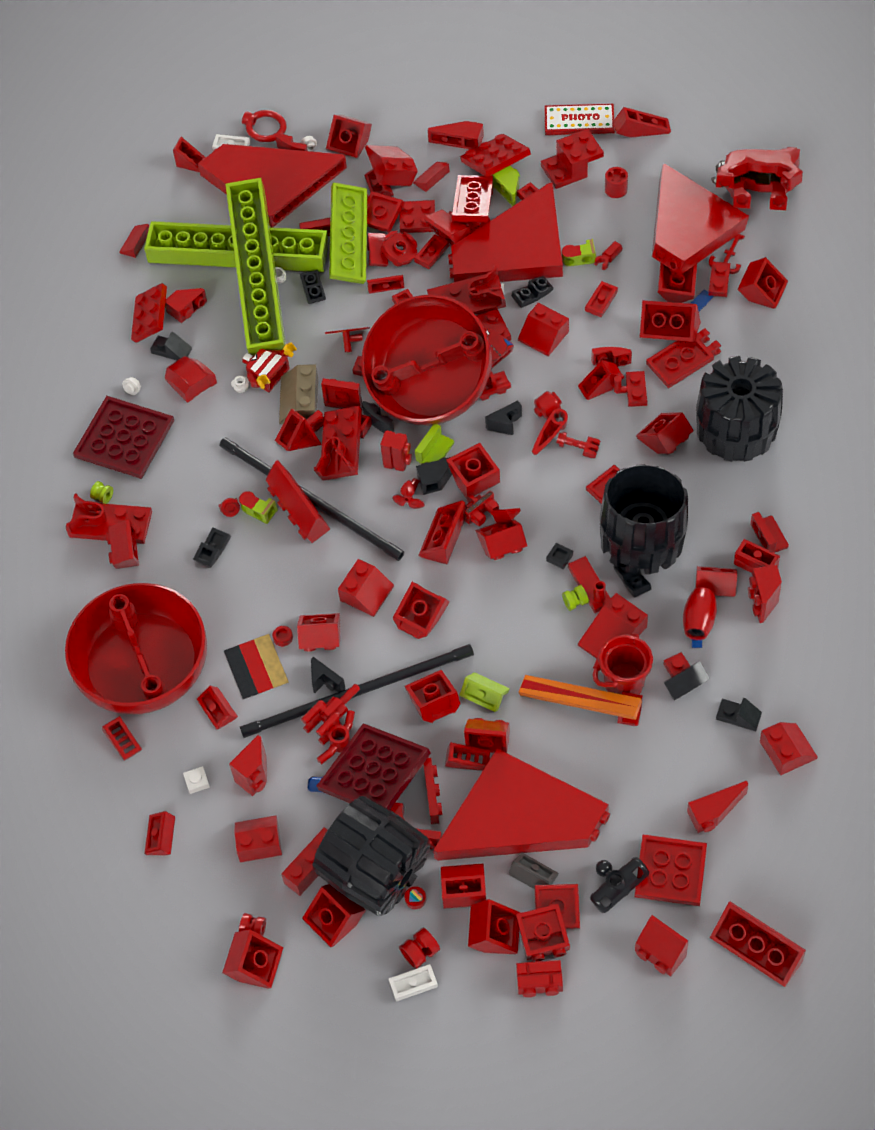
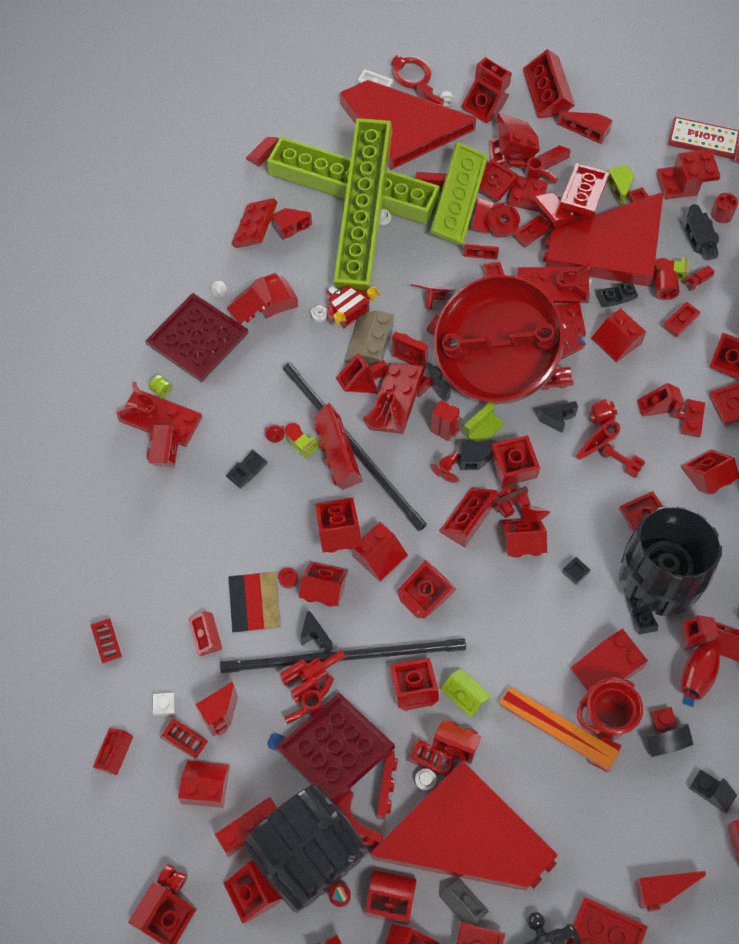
camera: 10 degrees right, 5 degrees up
(136, 648) = (144, 556): red cylinder -> none
(168, 388) = (250, 301): none -> red slope
(170, 347) = (265, 261): black slope -> none
(186, 155) = (332, 82): red slope -> none
(223, 811) = (188, 732): none -> red slope
(312, 286) = (412, 236): black slope -> none
(318, 572) = (338, 525): none -> red brick
(350, 107) = (493, 73): none -> red brick
(409, 105) = (548, 85): none -> red slope
(417, 191) = (534, 168): none -> red piece
(467, 777) = (425, 779): none -> white plate
(495, 155) = (616, 153): red plate -> none
(575, 597) = (580, 619): lime wheel -> none
(578, 269) = (666, 284): none -> red piece
(586, 576) = (598, 608): red piece -> none
(599, 212) = (701, 233): none -> black hinge
(616, 355) = (681, 379): red slope -> none
(687, 576) = (698, 631): none -> red slope

